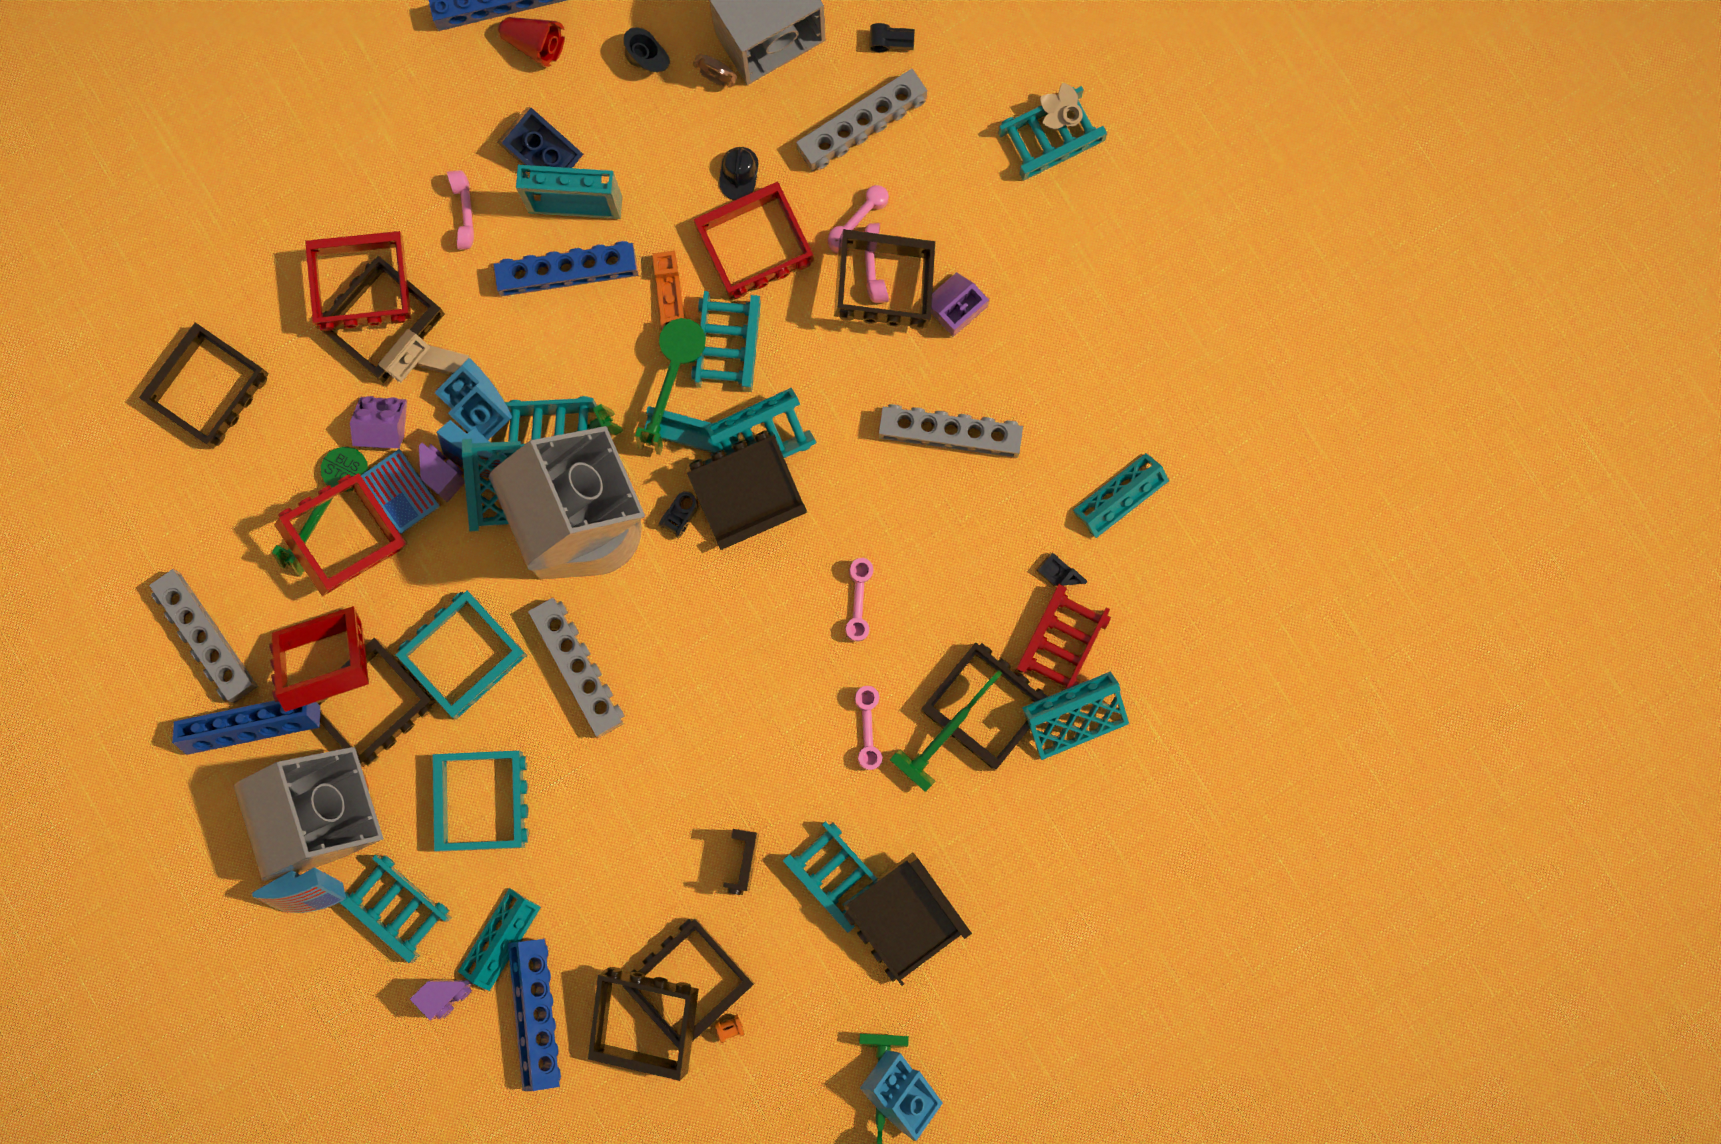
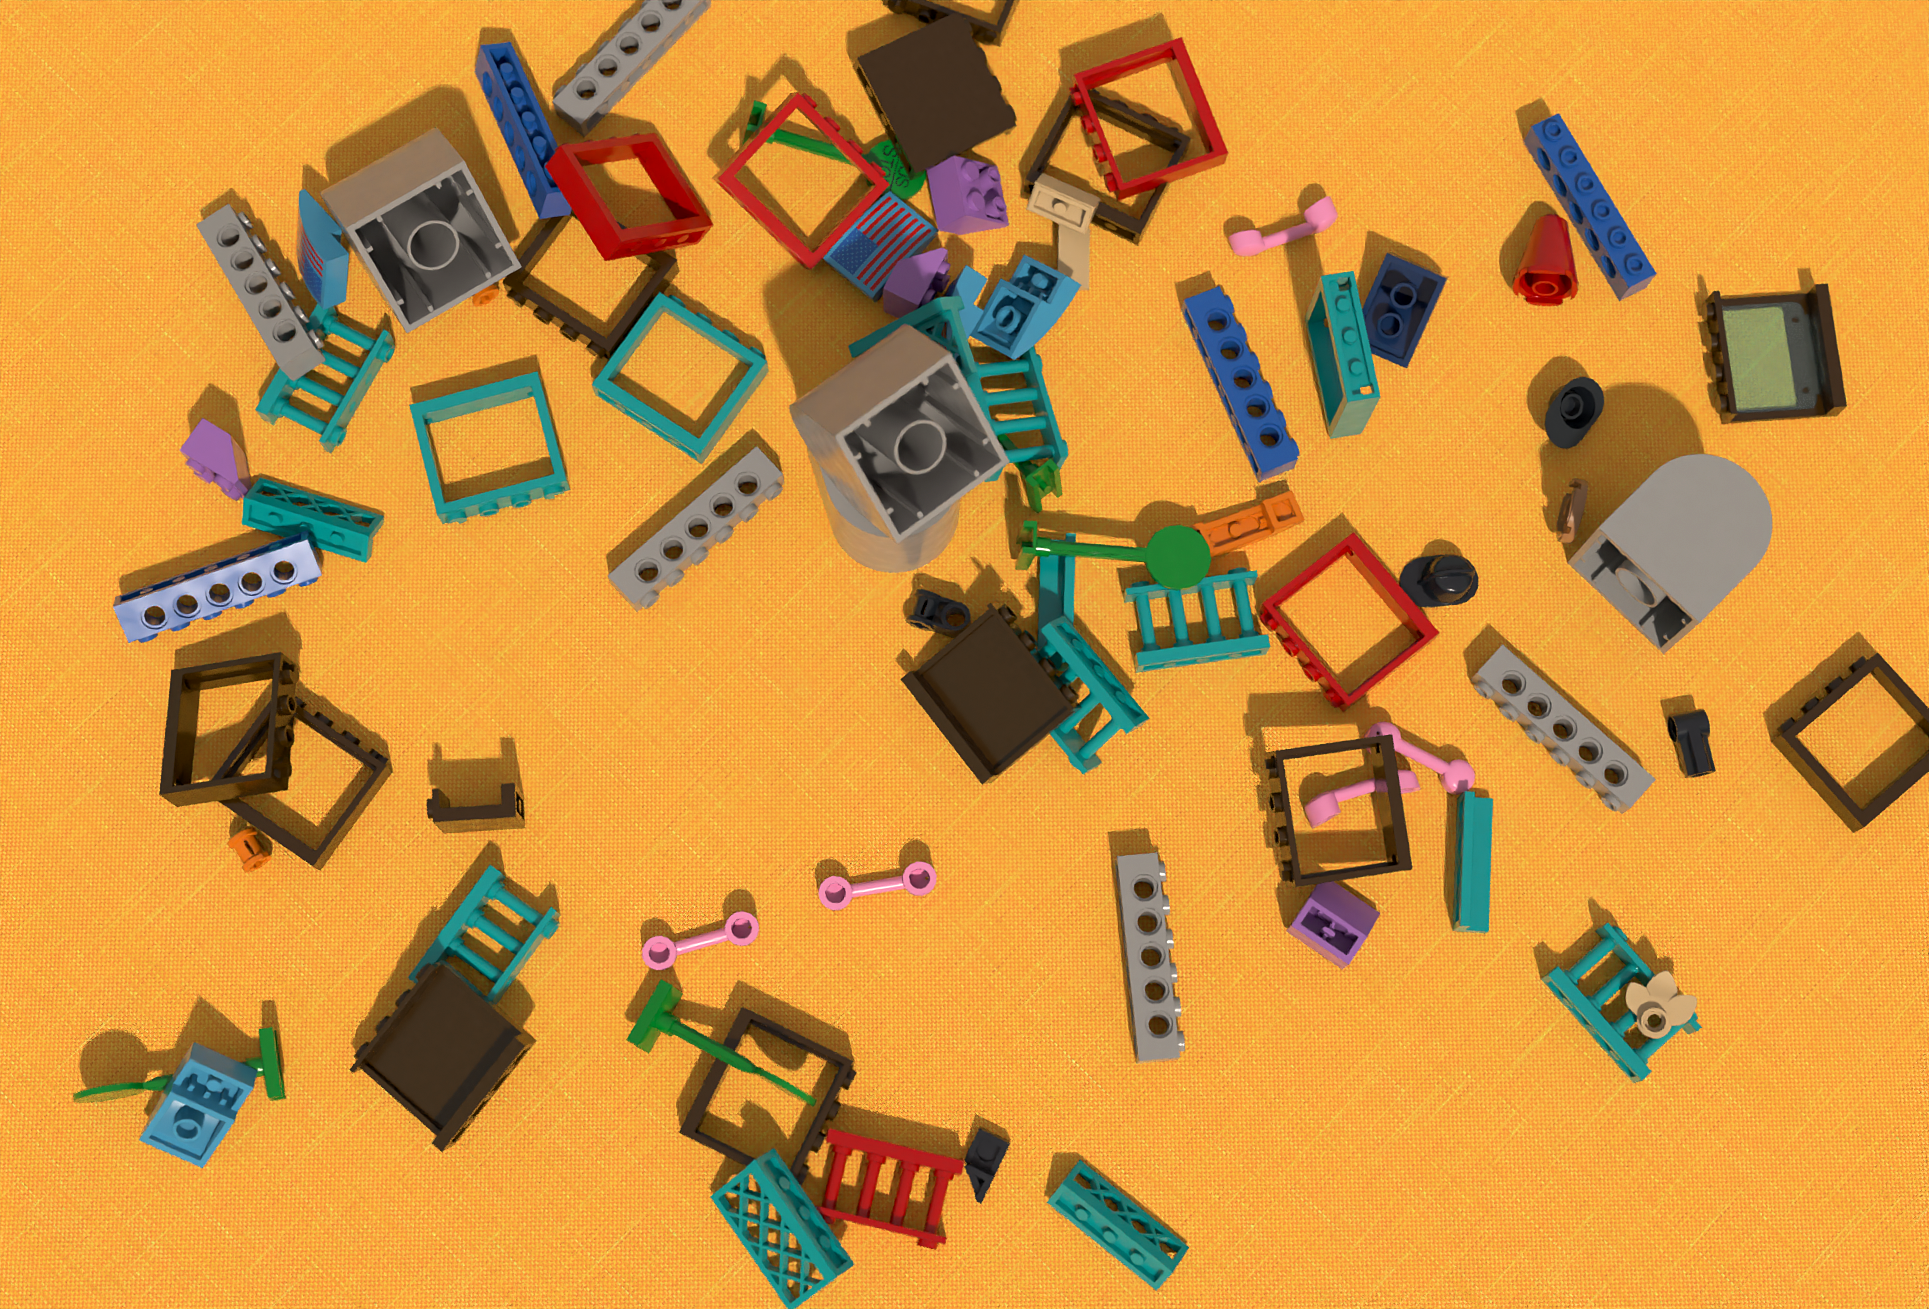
camera: 70 degrees right, 5 degrees down
(265, 964) = (262, 292): none -> light grey brick
(298, 425) = (934, 94): none -> dark brown panel
(937, 203) = (1472, 863): none -> teal fence

